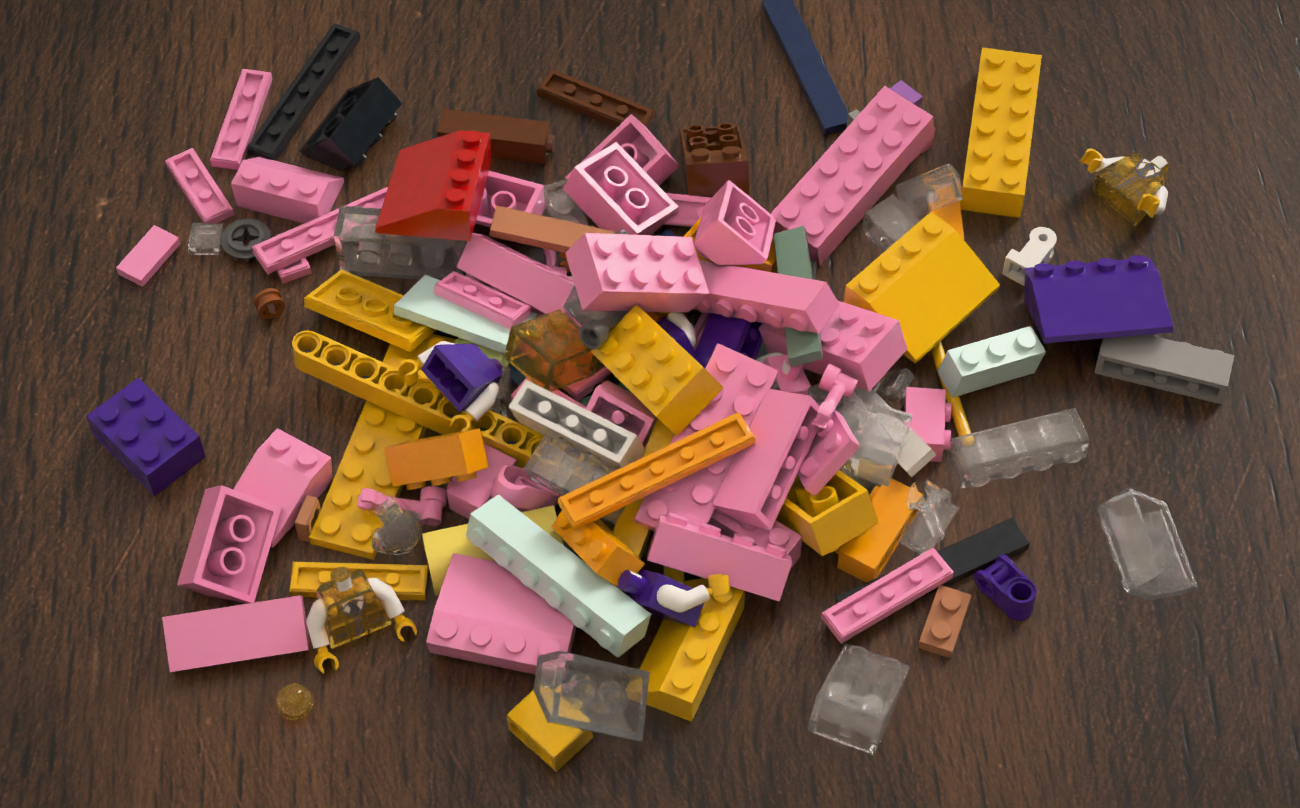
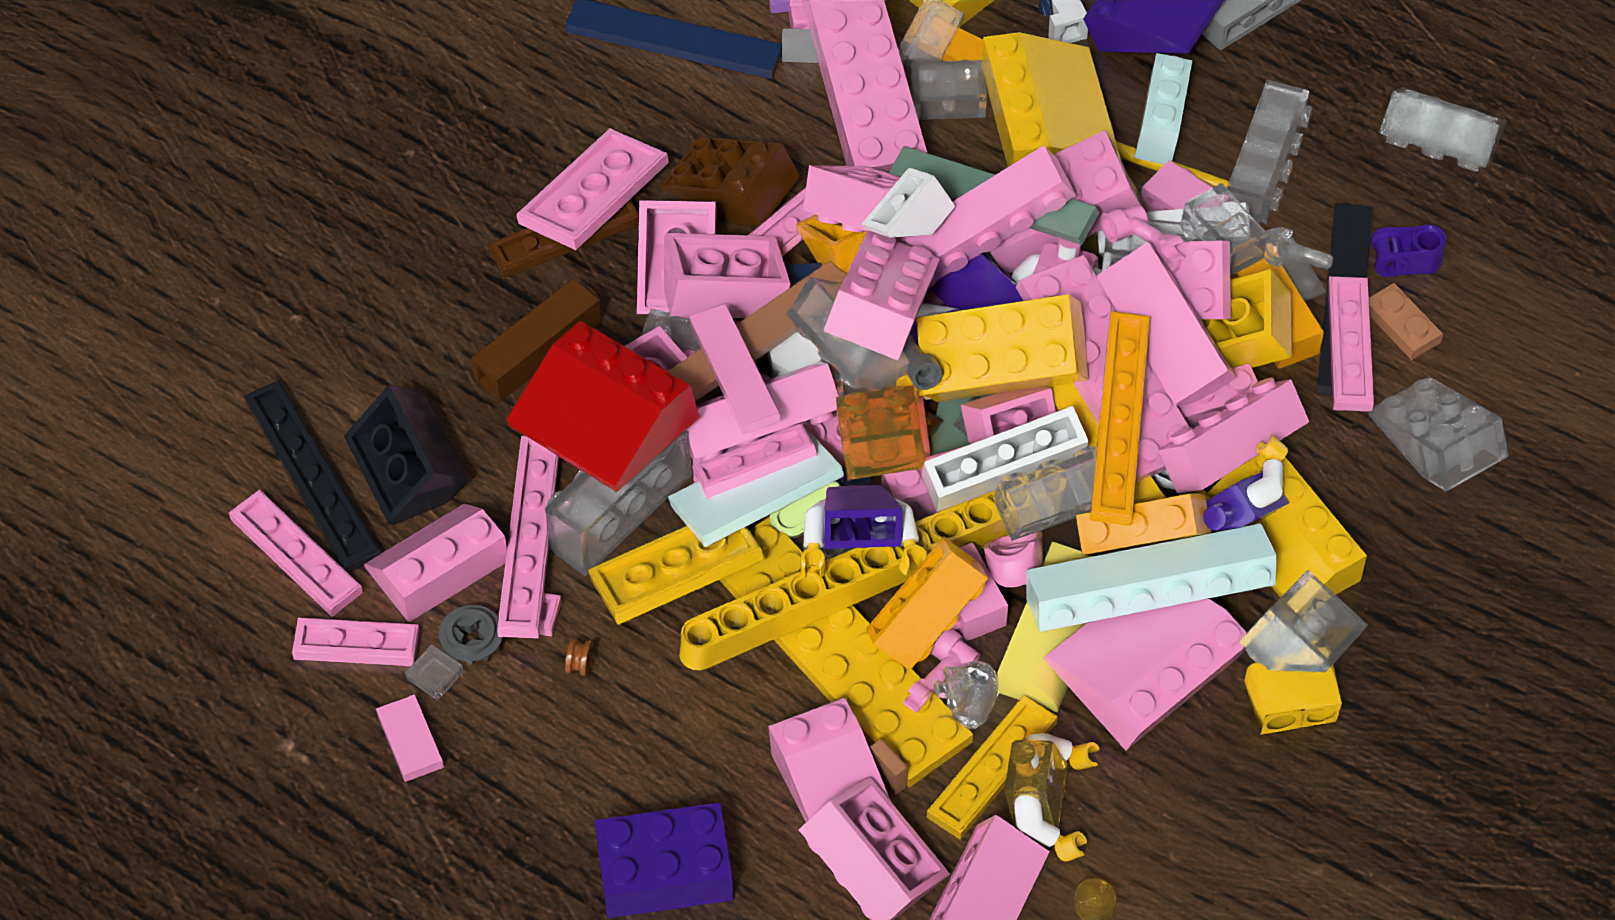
camera: 55 degrees left, 0 degrees up
(527, 238) = (734, 369): none -> bright pink tile
(639, 93) = (592, 188): none -> bright pink tile
(720, 247) = (911, 207): none -> white slope

